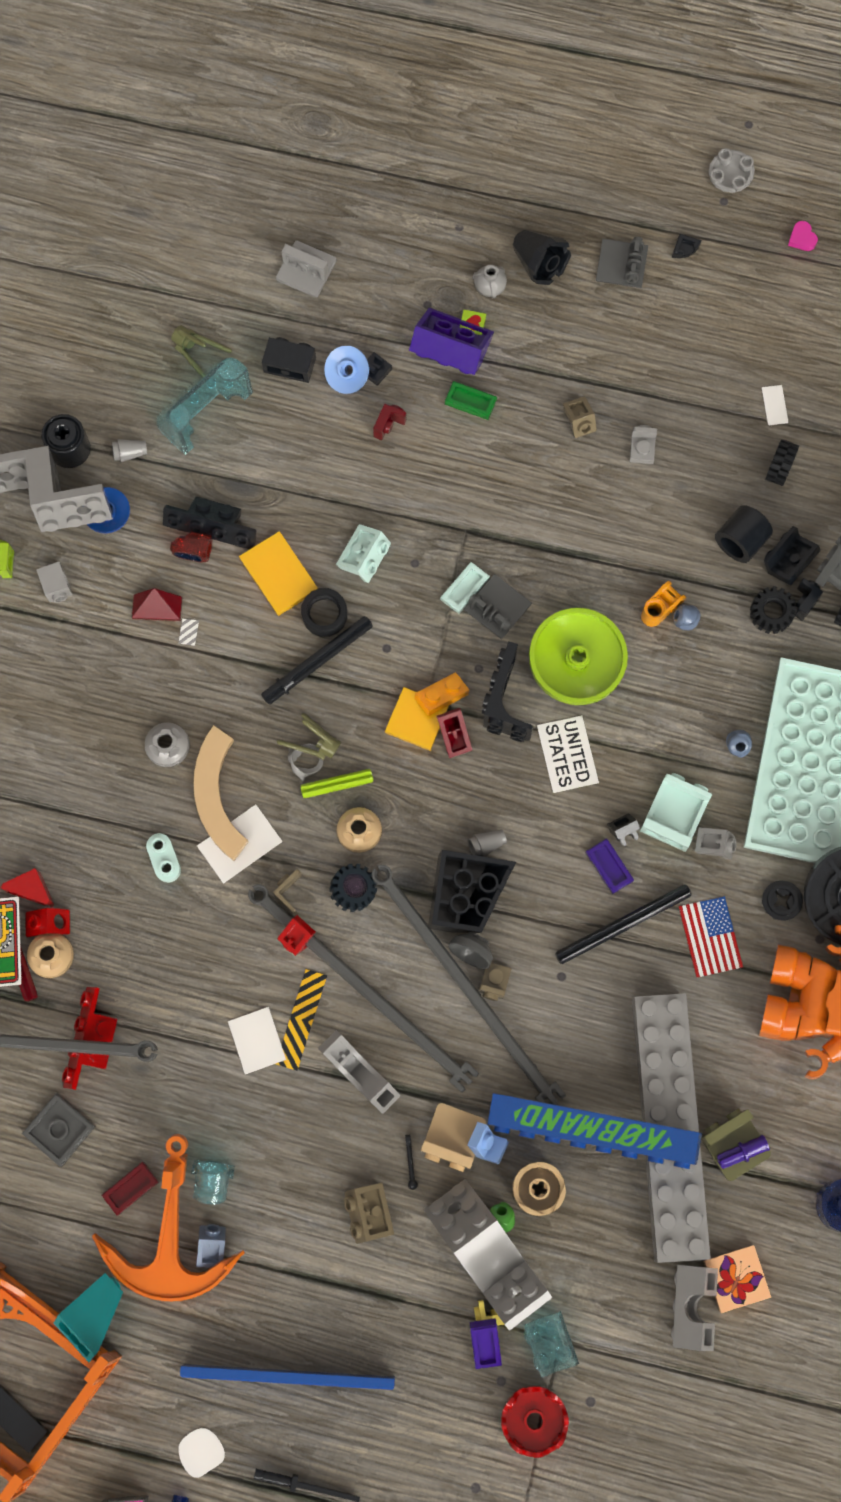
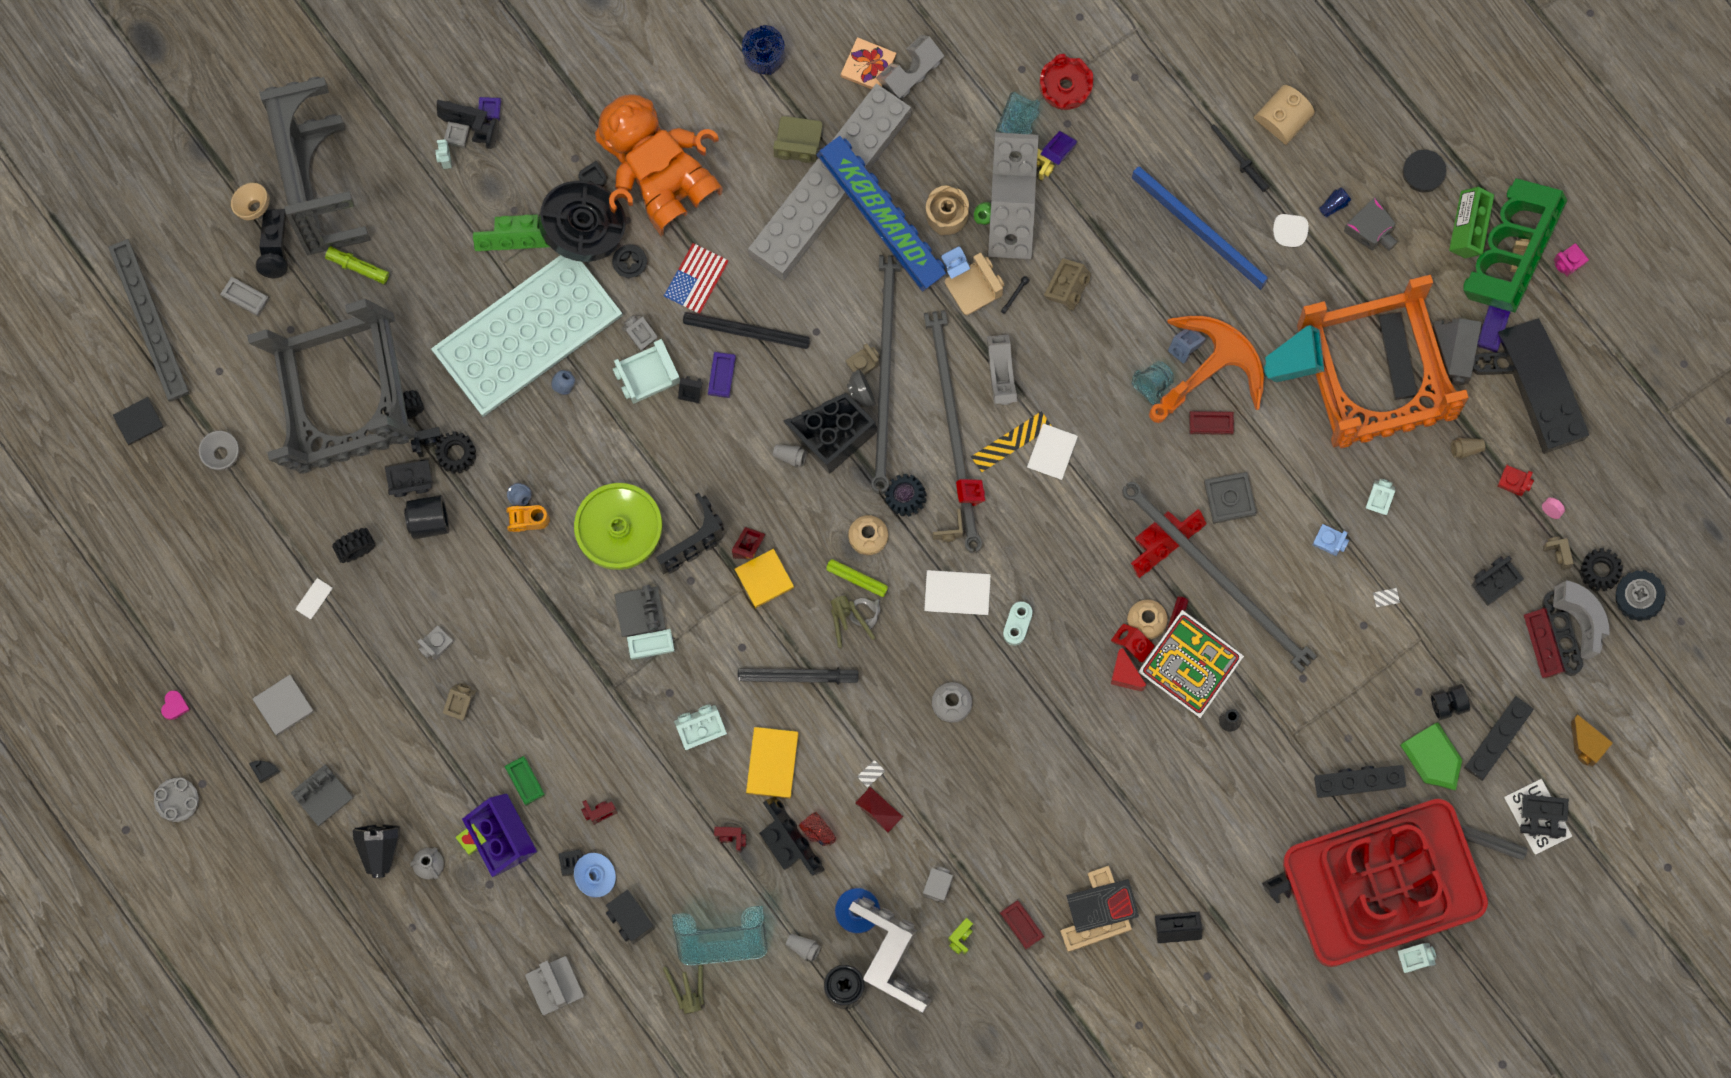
camera: 140 degrees left, 0 degrees up
(208, 794) = (951, 642): tan tile -> none
(265, 486) = (726, 834): none -> dark red bracket
(324, 594) = (762, 688): black tyre -> none
(441, 694) = (733, 579): light orange plate -> none
(567, 754) = (682, 472): white sticker -> none
(718, 304) = (283, 705): none -> light grey tile
(743, 1152) = (798, 130): dark purple axle -> none

